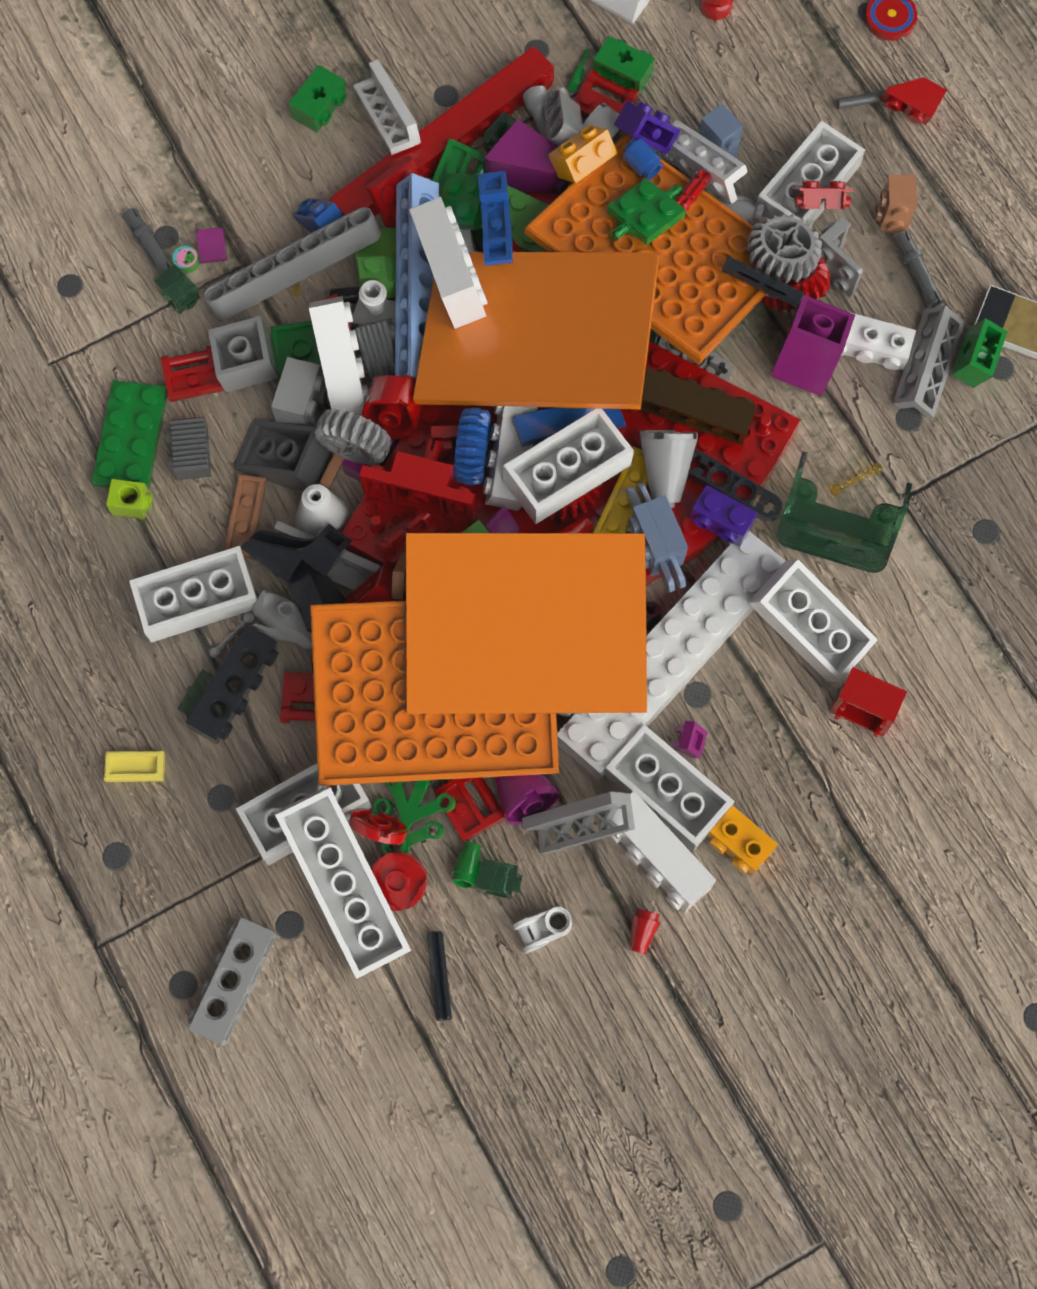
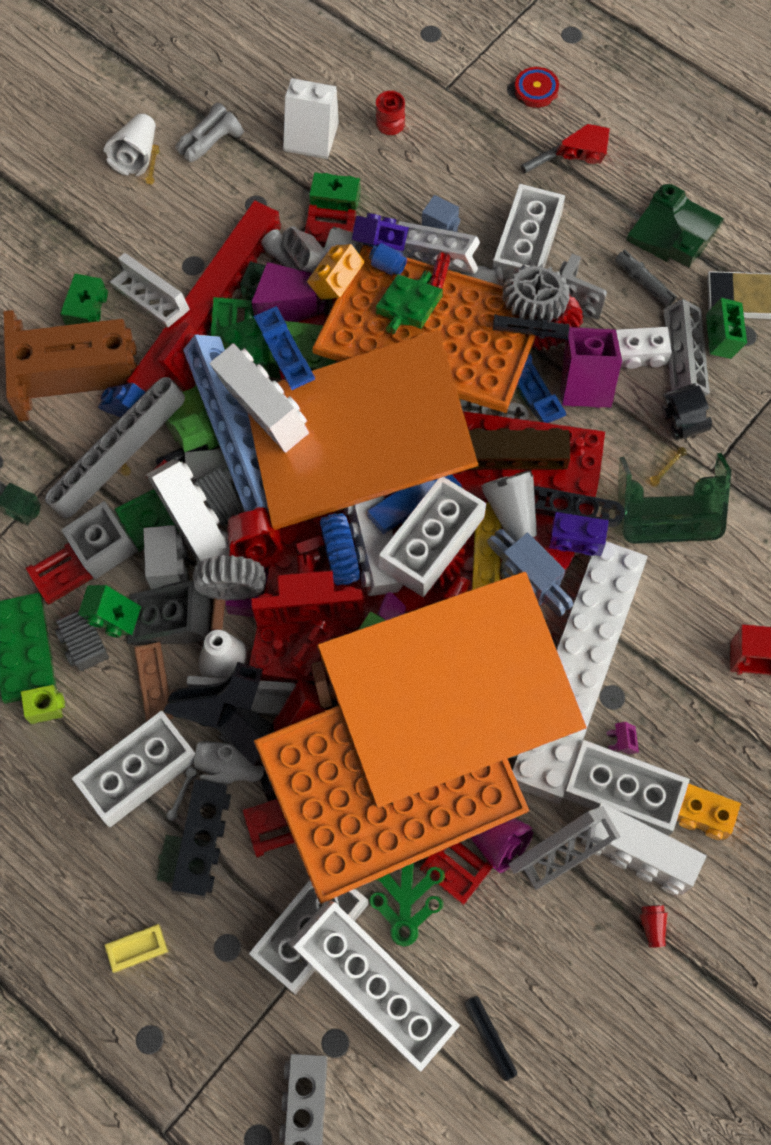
camera: 20 degrees left, 5 degrees down
(186, 258) = (16, 474): tile -> none
(211, 245) = (35, 456): magenta slope -> none
(225, 428) = (109, 610): none -> green brick
(274, 154) = (64, 359): none -> dark orange brick
(373, 296) = (200, 450): white cone -> none
(378, 828) = (386, 921): red tile -> none
(400, 879) = (422, 960): red tile -> none
(467, 866) = (476, 926): green cone -> none
(498, 879) = (509, 927): clear green brick -> none
(541, 929) = (566, 958): white piece -> none
(578, 72) = (298, 211): green piece -> none
(748, 353) = (537, 396): none -> blue slope
(812, 621) = (688, 597): white brick -> none
(834, 195) = (557, 239): hinge -> none
(896, 428) = (687, 411): none -> black brick
(897, 203) = (608, 230): nougat brick -> none
(975, 223) = (674, 227): none -> dark green slope

